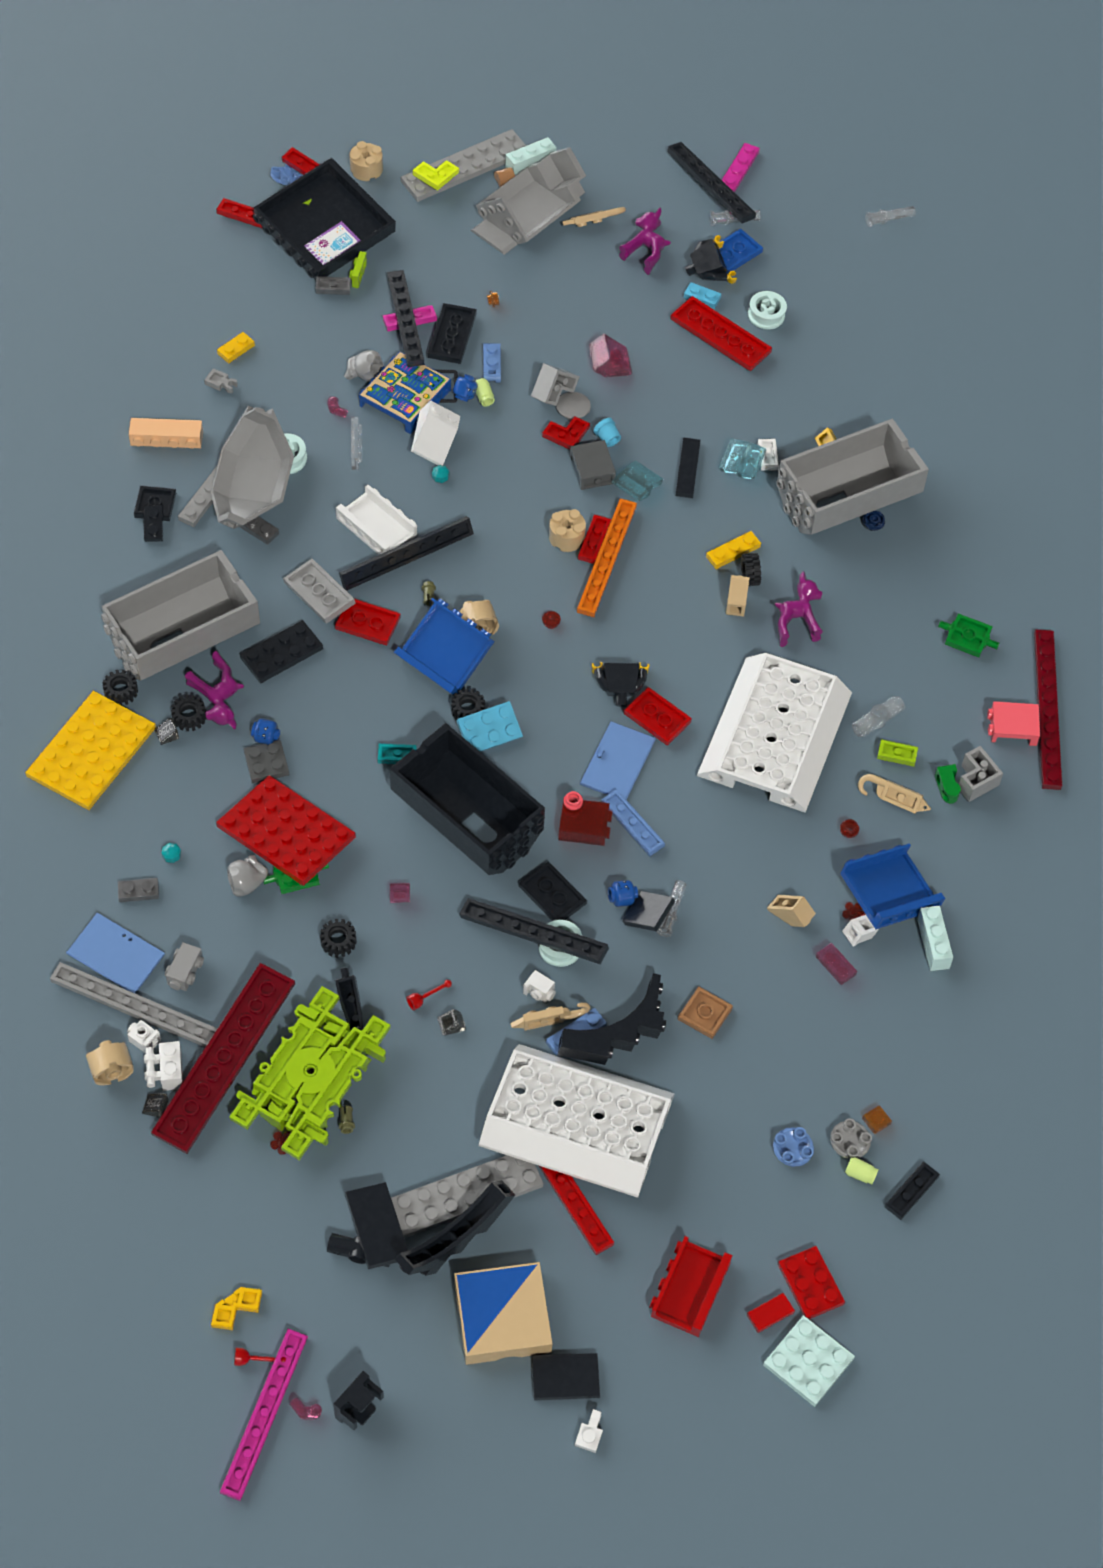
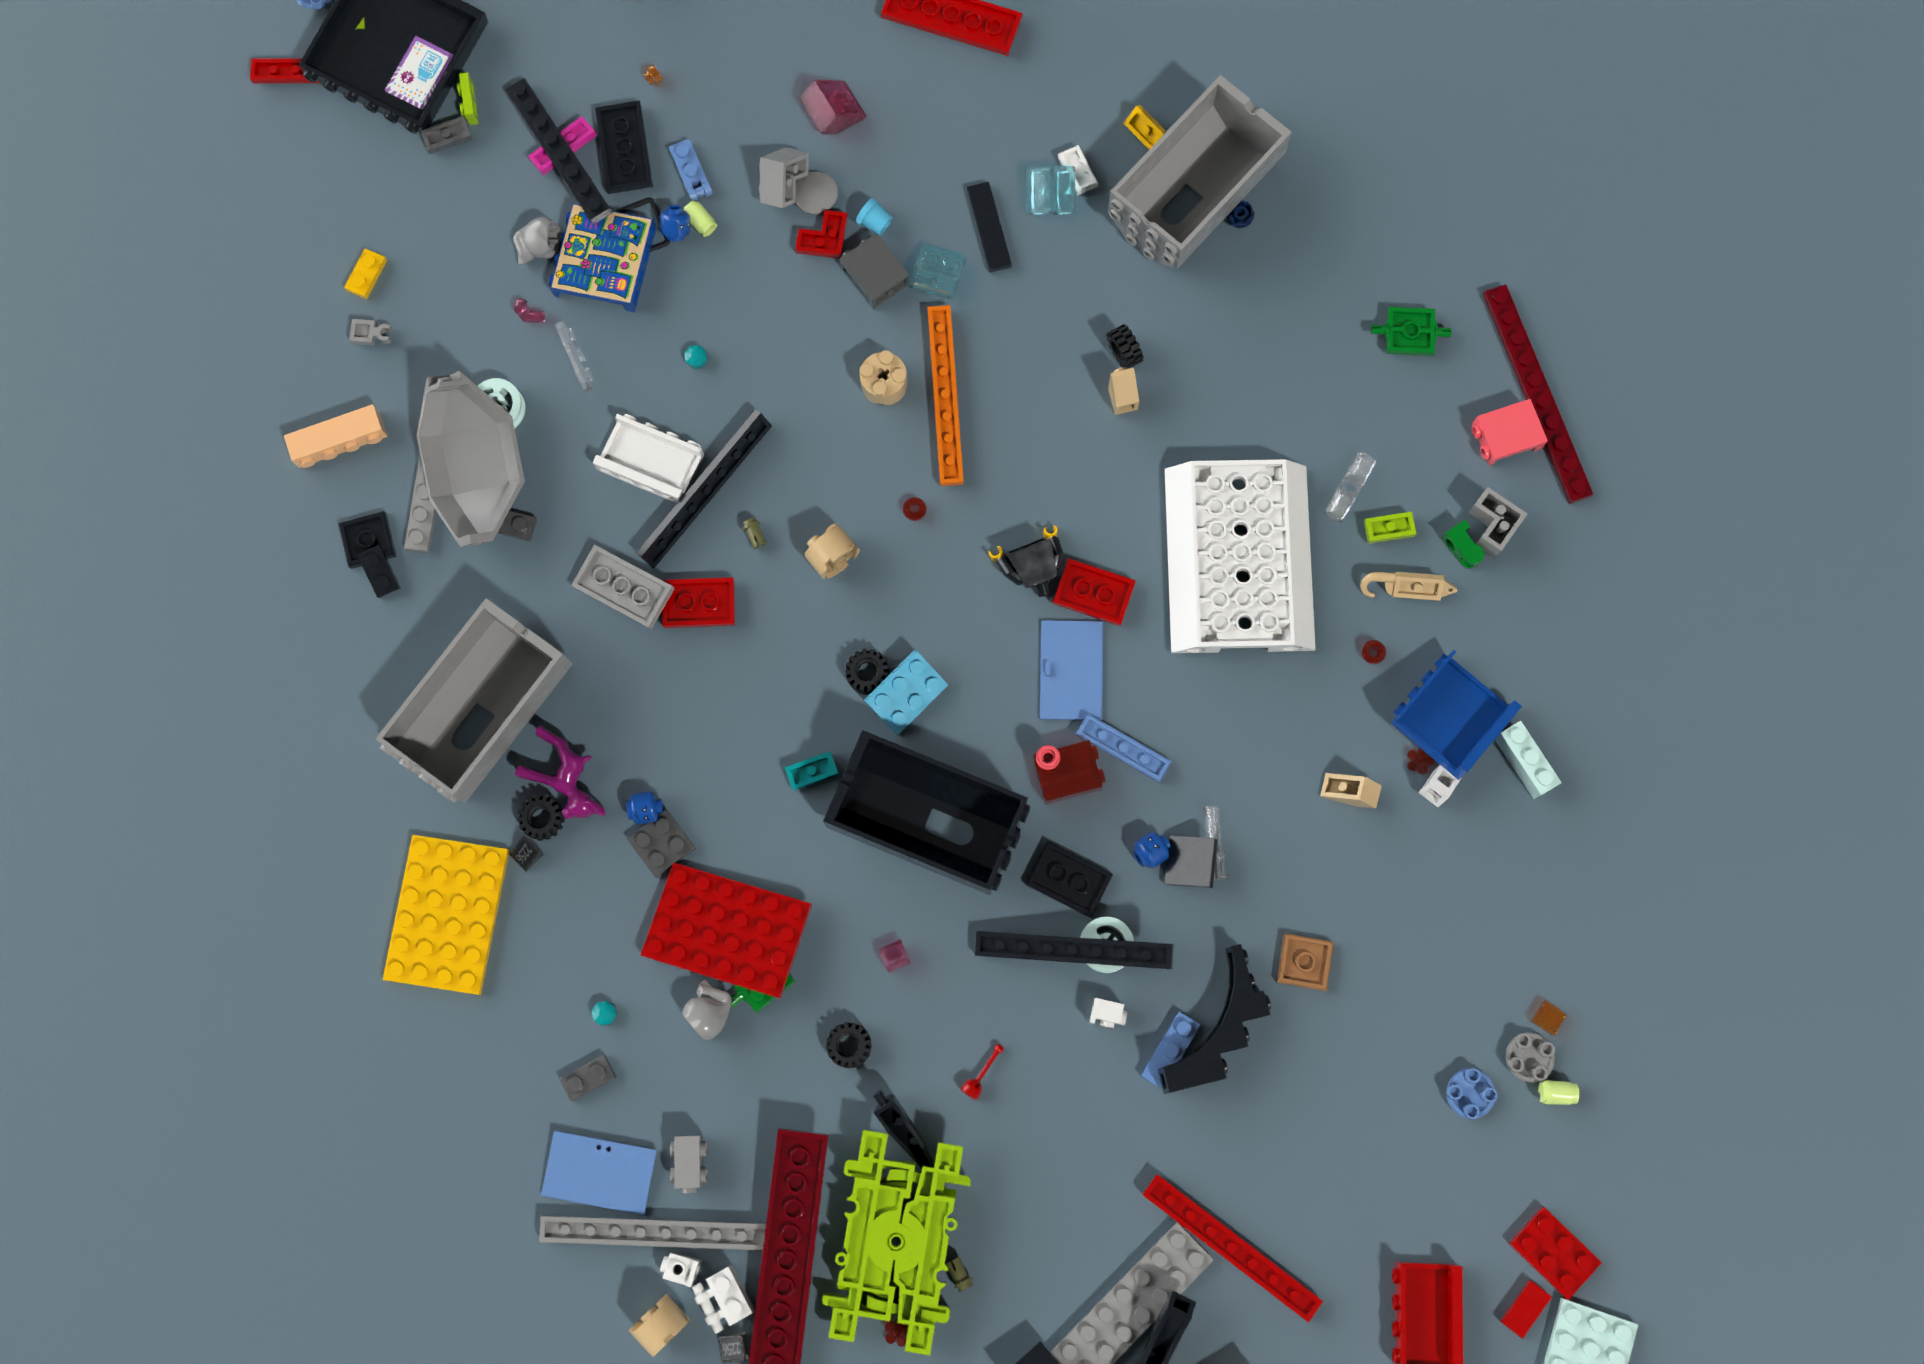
camera: 15 degrees left, 20 degrees up
(120, 678) = (450, 829): black tyre -> none
(281, 651) = (613, 685): black plate -> none
(435, 432) = (666, 306): white slope -> none
(446, 647) = (809, 608): blue panel -> none
(451, 1022) = (1024, 1097): clear smoke slope -> none
(550, 1016) = (1134, 1042): tan plate -> none
(569, 1135) = (1223, 1199): white slope -> none
(594, 539) = (920, 375): red plate -> none
(733, 549) = (1089, 322): yellow plate -> none
(807, 592) = (1201, 350): magenta animal -> none
(836, 963) = (1428, 838): clear pink plate -> none
(912, 1190) = (1620, 1090): black tile -> none

